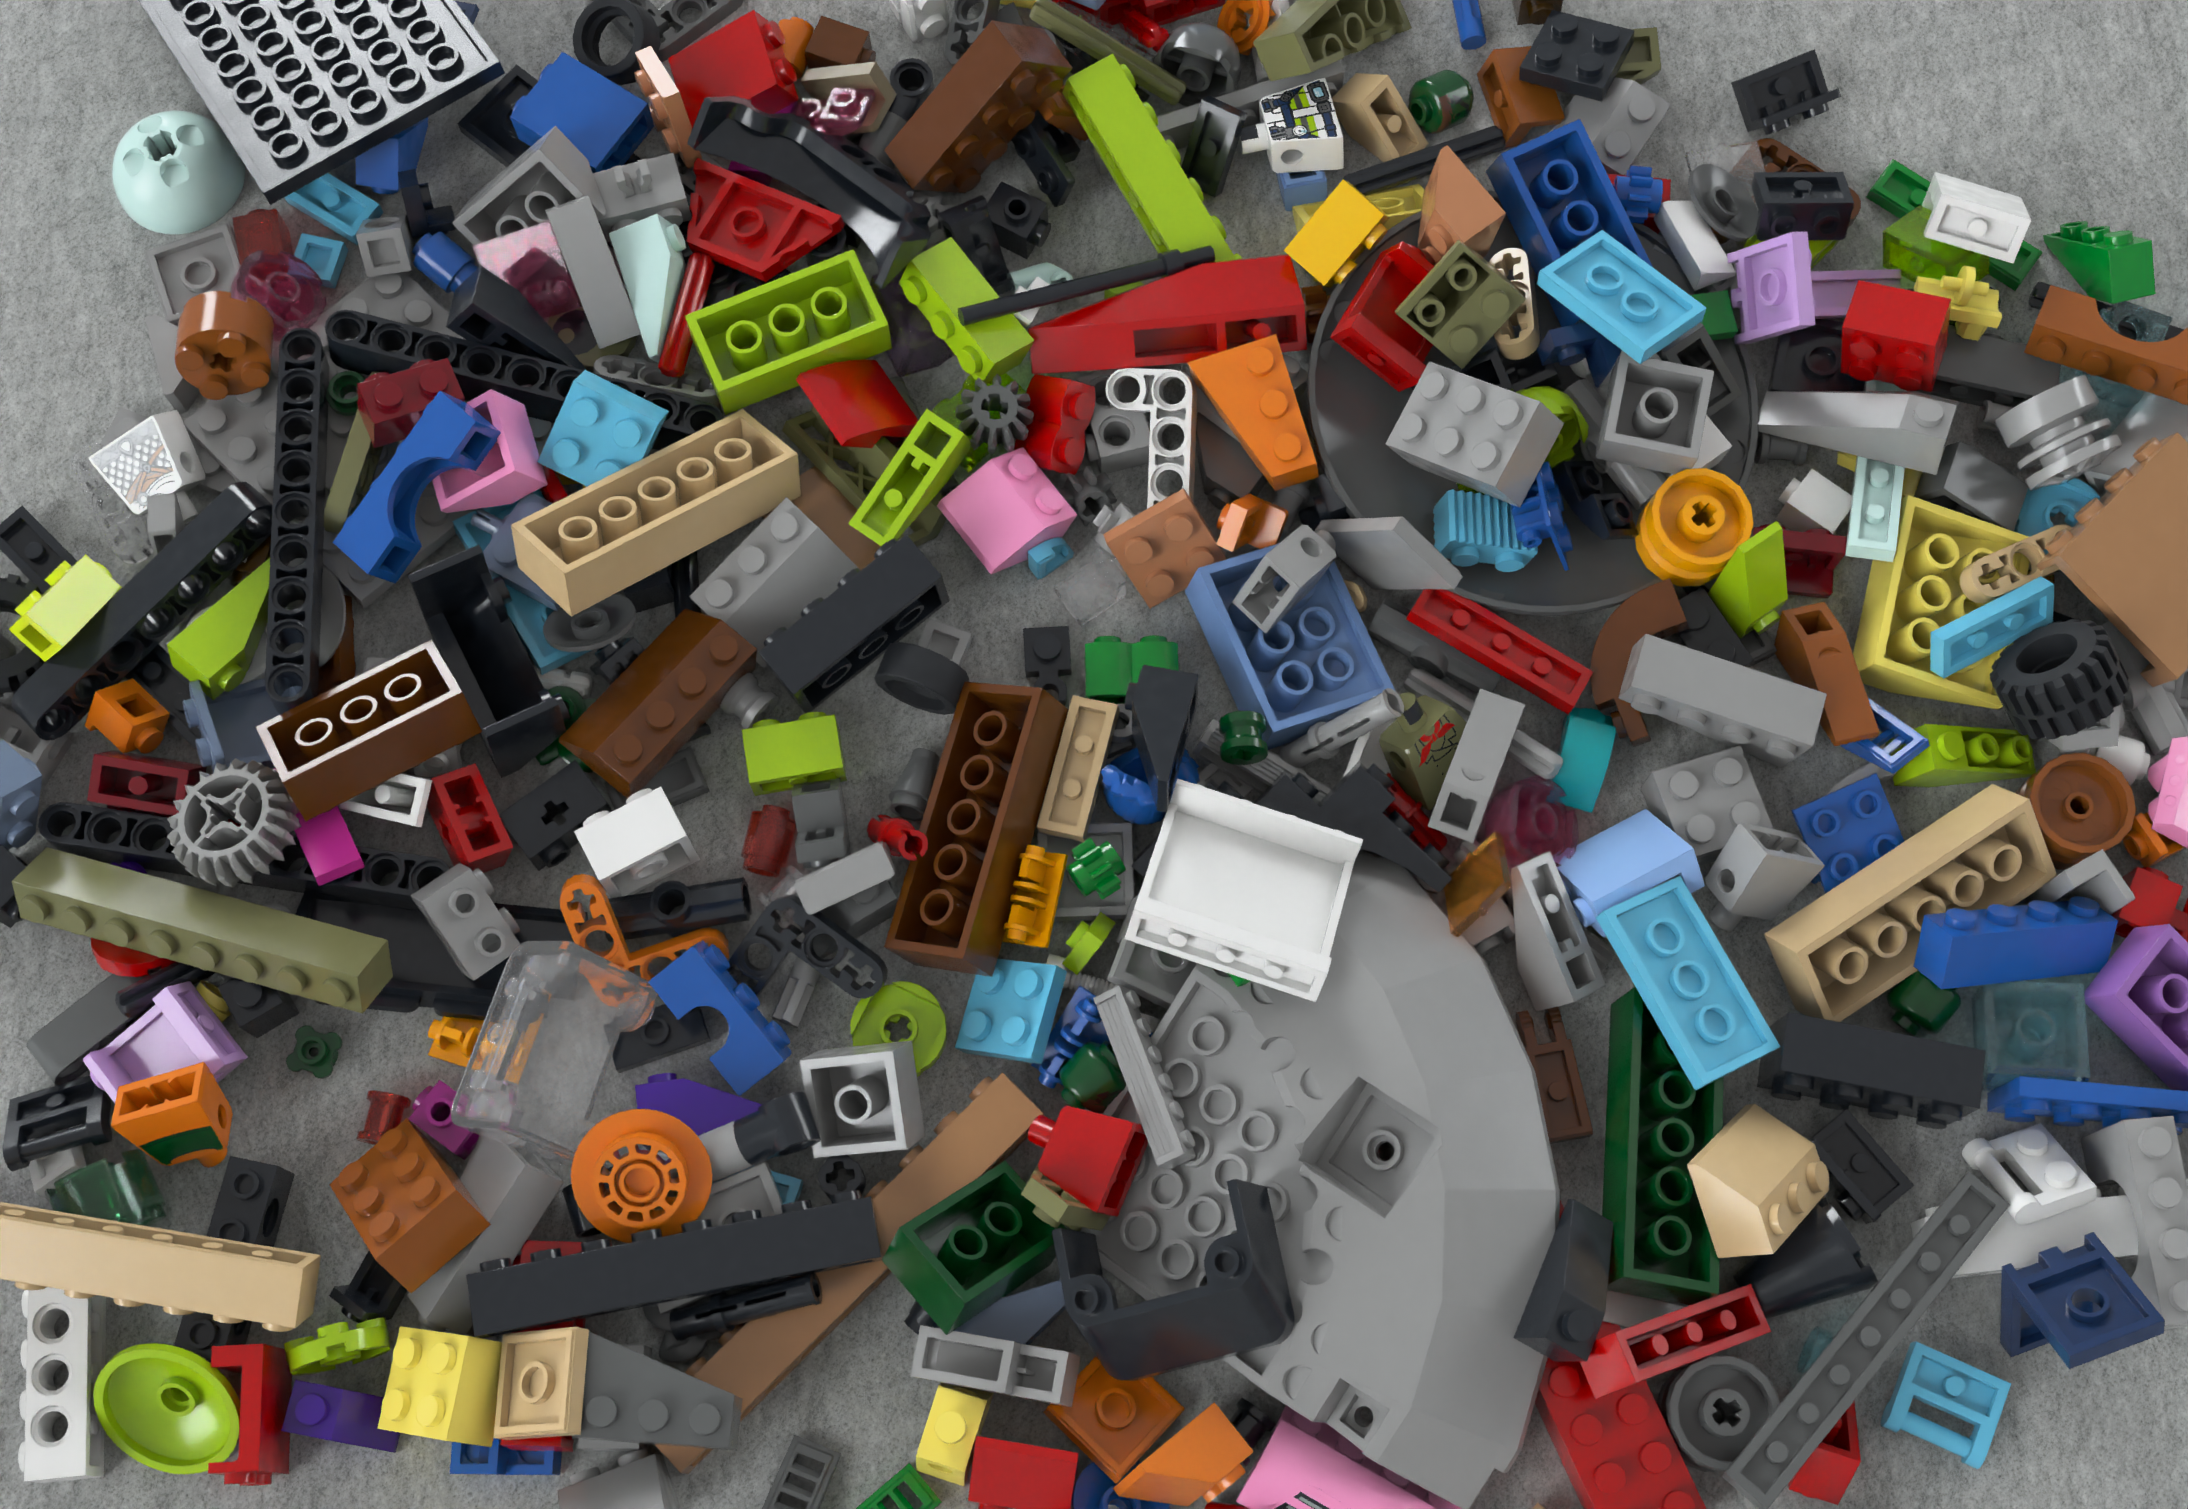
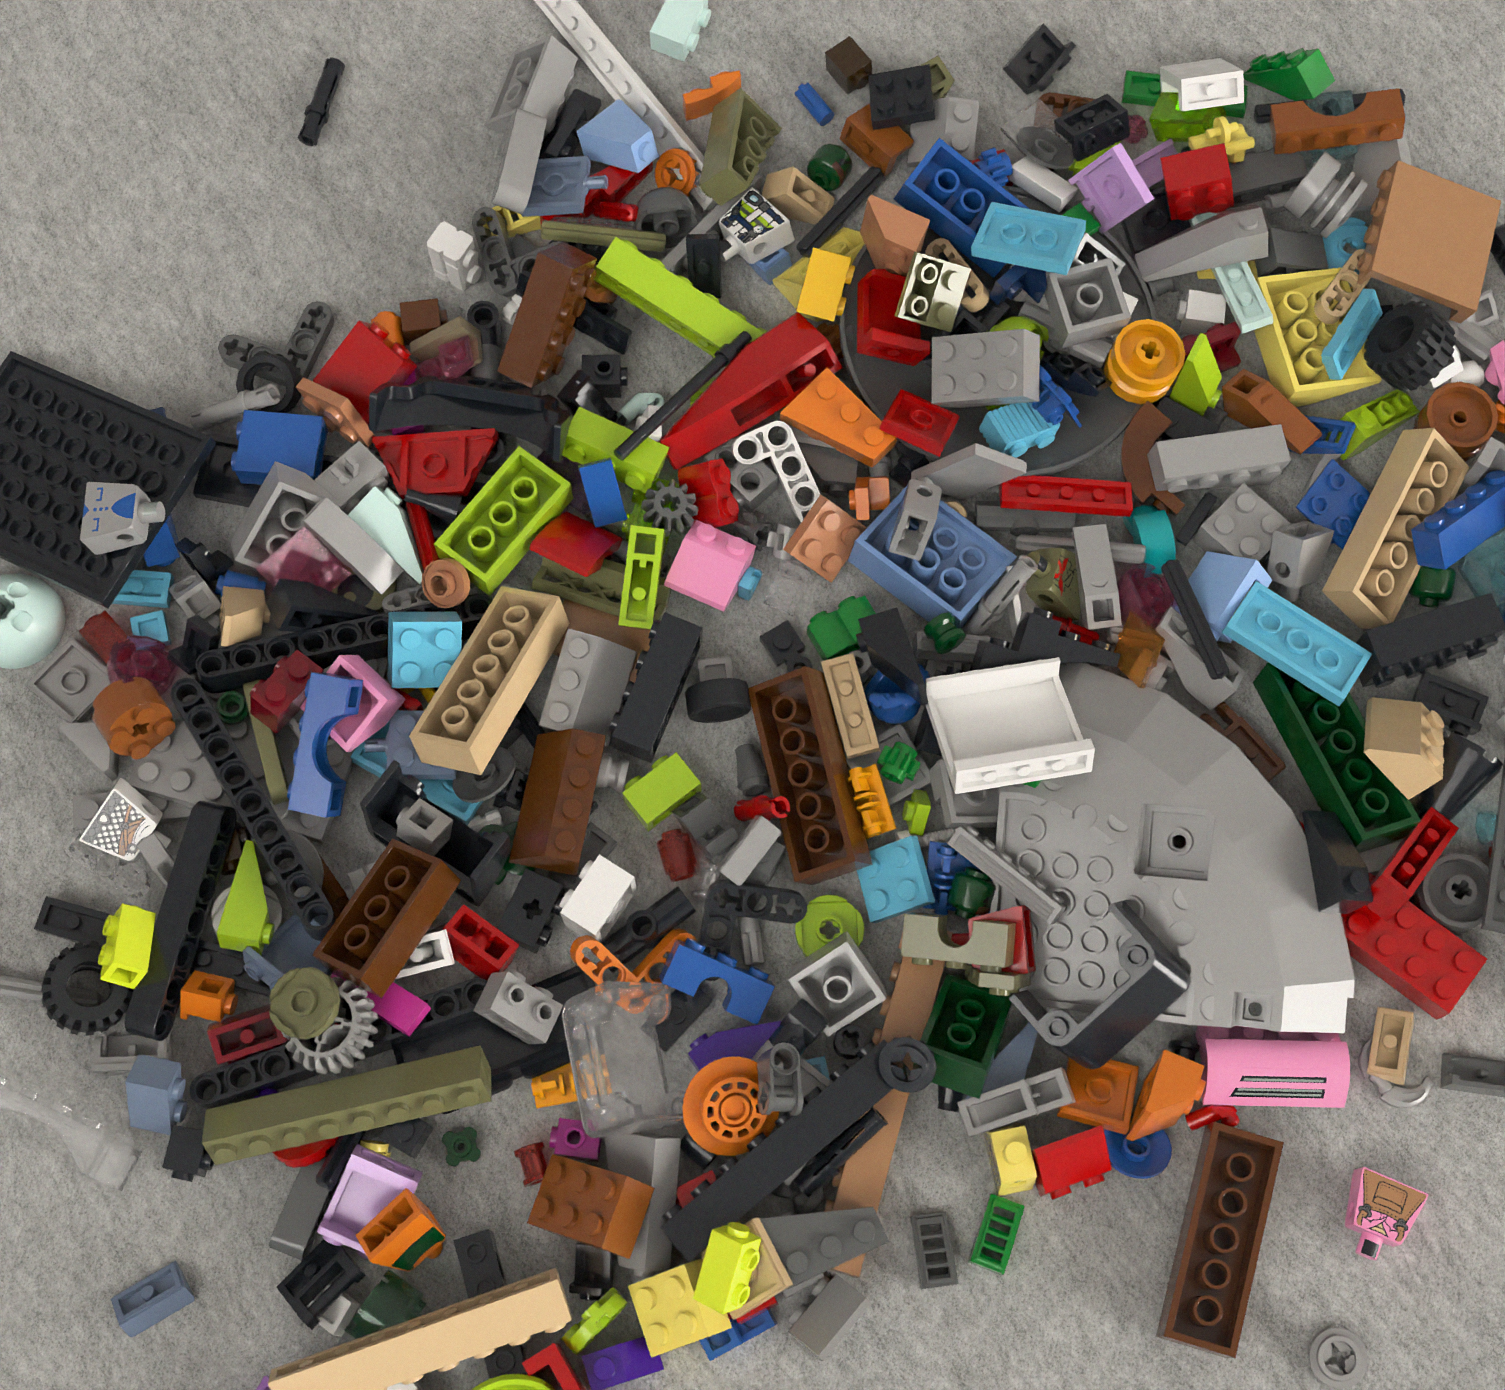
camera: 30 degrees left, 0 degrees up
(214, 779) = (304, 1003): none -> olive tile
(334, 100) = (117, 516): none -> light grey torso
(356, 293) = (198, 638): none -> black bracket
(418, 289) = (241, 614): none -> tan slope
(482, 649) = (424, 827): none -> light grey brick
(512, 1369) = (727, 1268): none -> neon yellow brick
(550, 45) = (235, 407): none -> light grey pin
(674, 370) = (445, 582): none -> nougat plate
(706, 1179) = (780, 1088): none -> dark grey piece
(724, 274) = (441, 505): none -> black cone
(857, 1244) = (896, 1073): none -> black gear
(922, 355) = (602, 492): none -> blue slope
(999, 1104) = (927, 940): none -> arch
(1356, 460) = (919, 422): none -> red plate
(1571, 884) = (1195, 619): none -> black axle
(1669, 754) = (1196, 519): none -> black tile
(1861, 236) = (1137, 129): none -> clear pink plate

